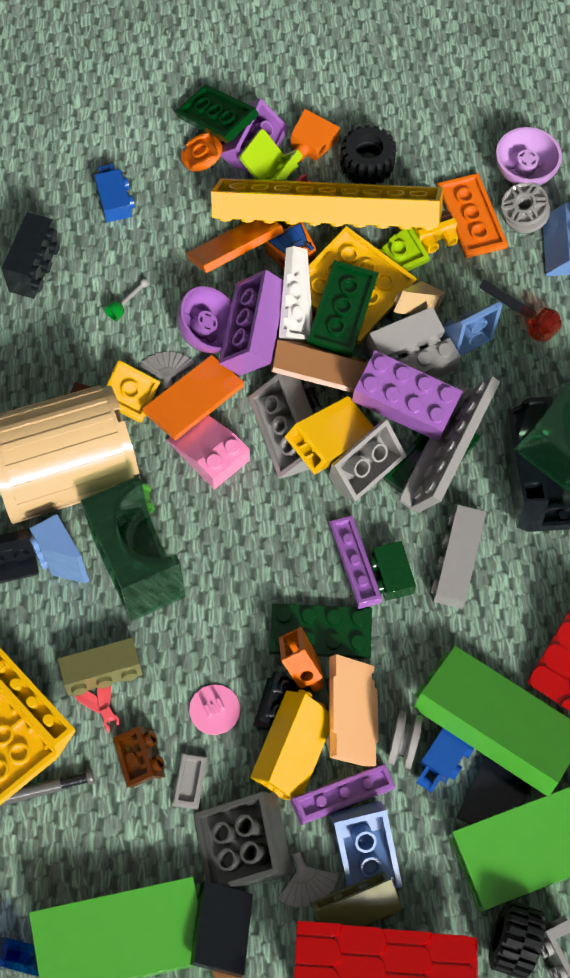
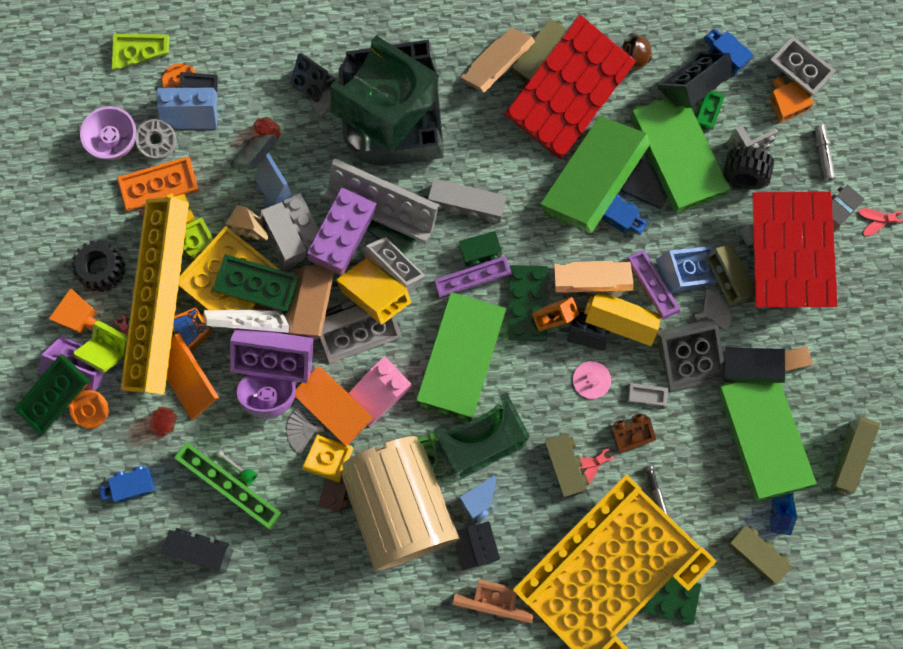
camera: 90 degrees left, 10 degrees up
(102, 287) = (229, 486): none -> bright green brick
(184, 223) = (162, 421): none -> clear red head
(249, 544) = (461, 357): none -> bright green brick
(405, 739) = (613, 239): light grey wheel -> none

